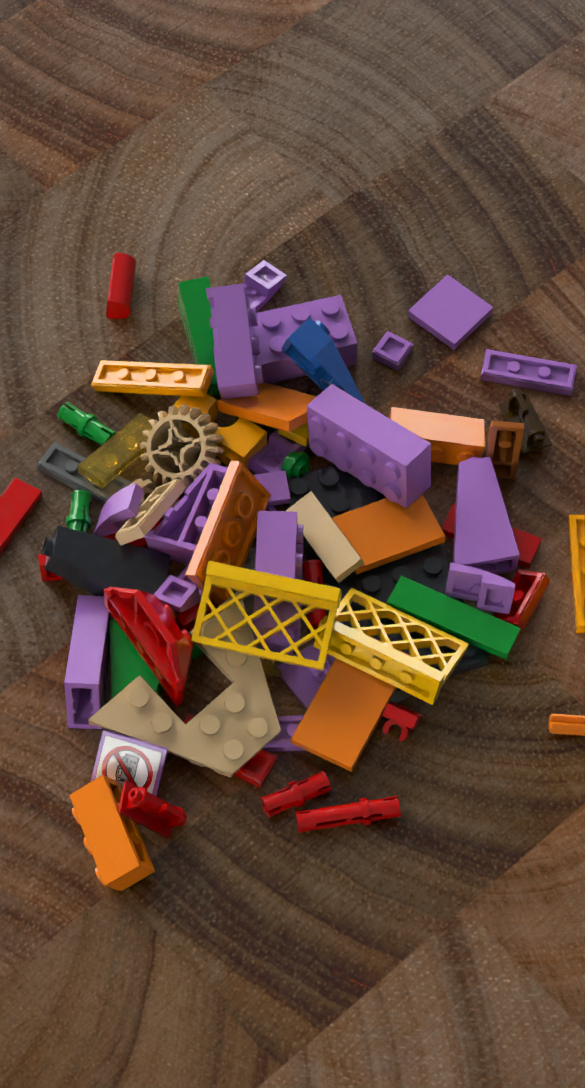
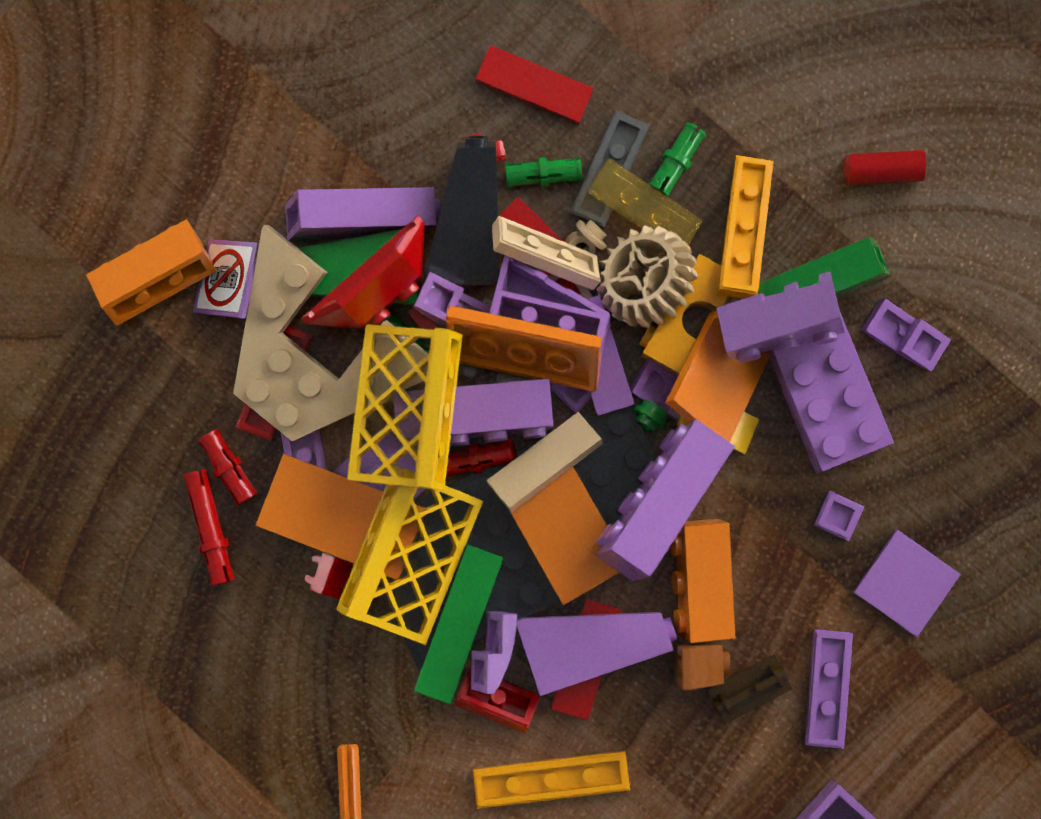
camera: 85 degrees right, 25 degrees up
(117, 508) = (550, 216): medium lavender slope -> none
(150, 810) = (181, 309): red hinge -> none
(319, 357) = (779, 425): blue wedge -> none

